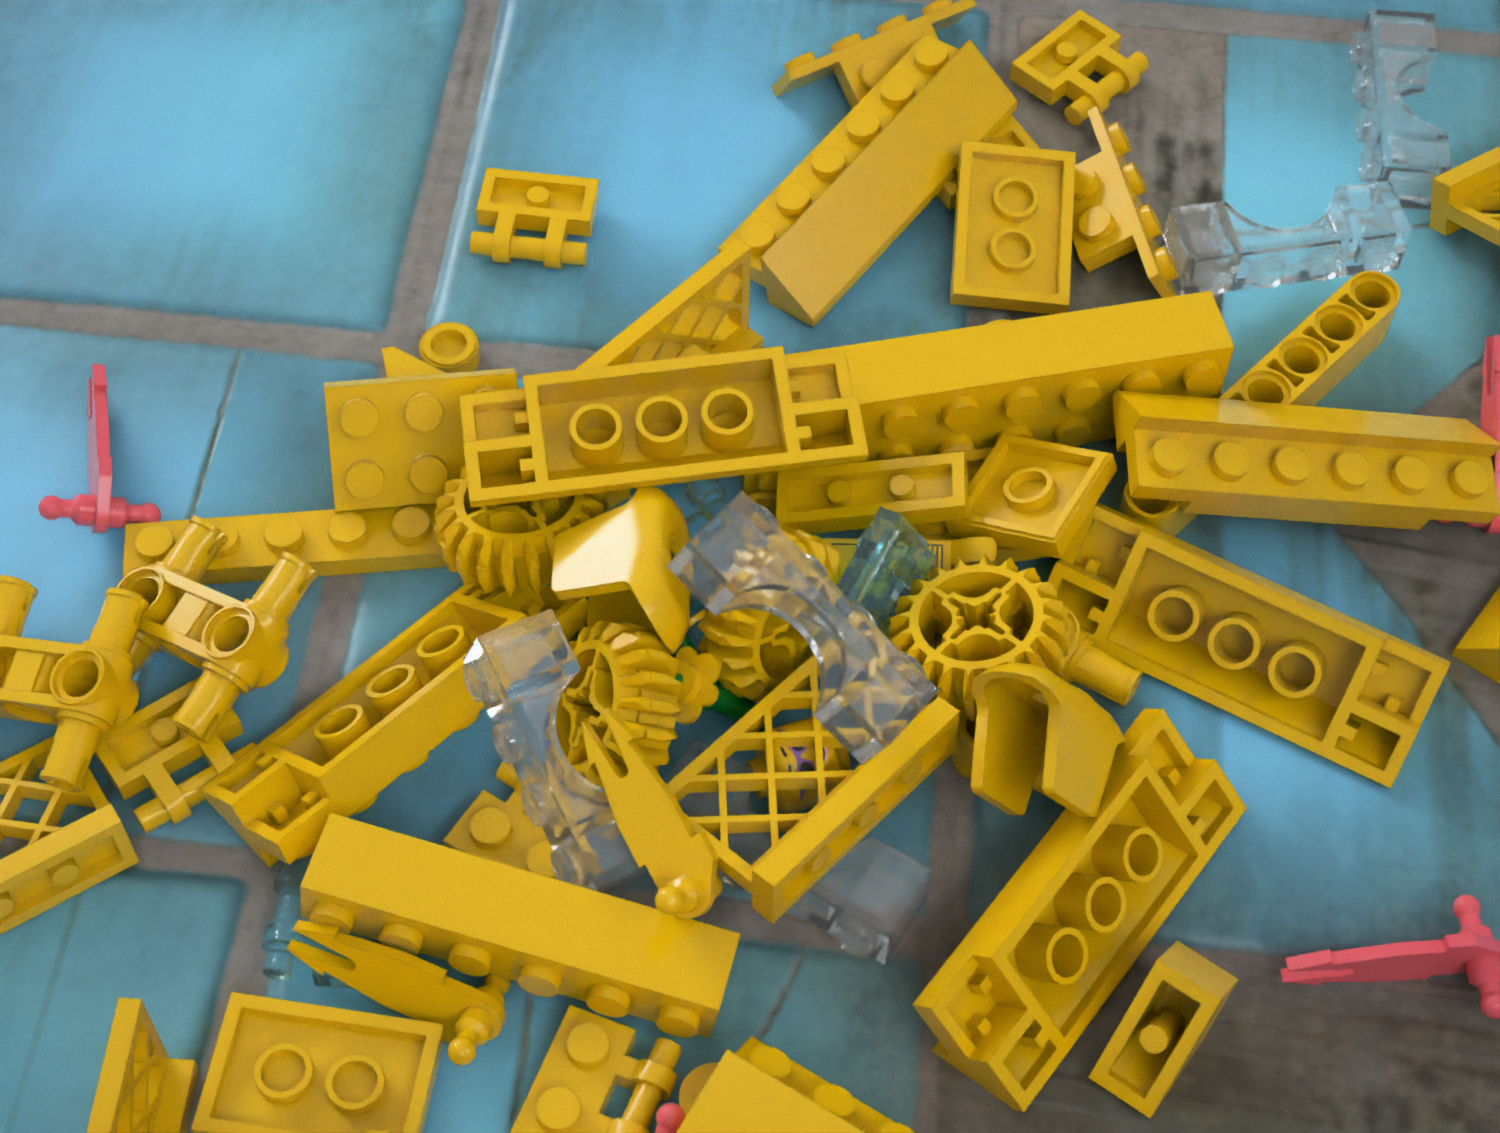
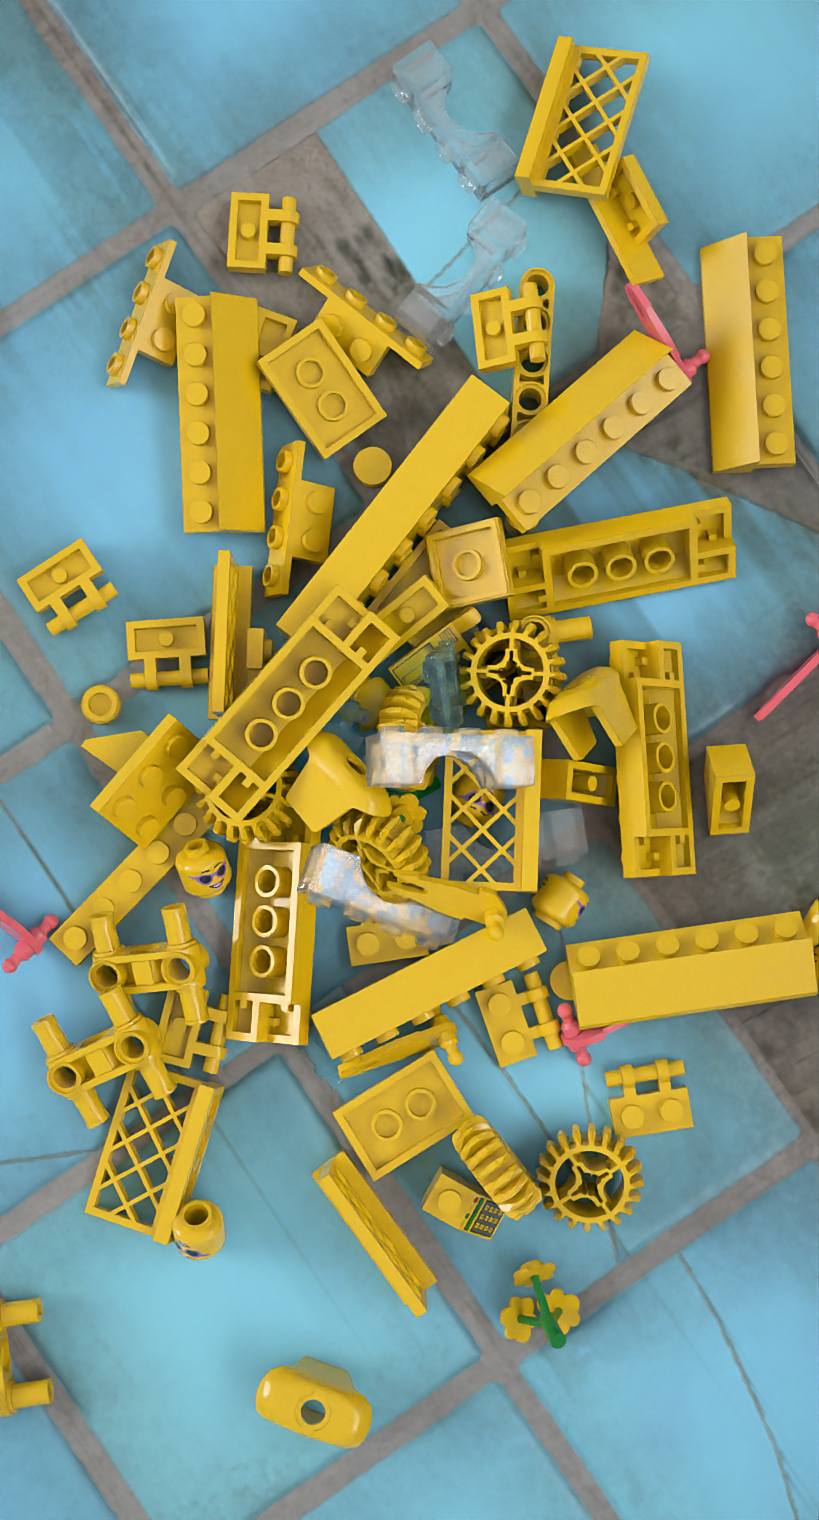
camera: 40 degrees left, 30 degrees up
(382, 579) = (203, 868): none -> yellow head
(564, 327) = (167, 640): none -> yellow plate
(797, 981) = (560, 900): none -> yellow head
(875, 311) = (299, 521): none -> yellow bracket
(950, 835) = (578, 782): none -> yellow slope
(1283, 296) = (496, 328): none -> yellow plate

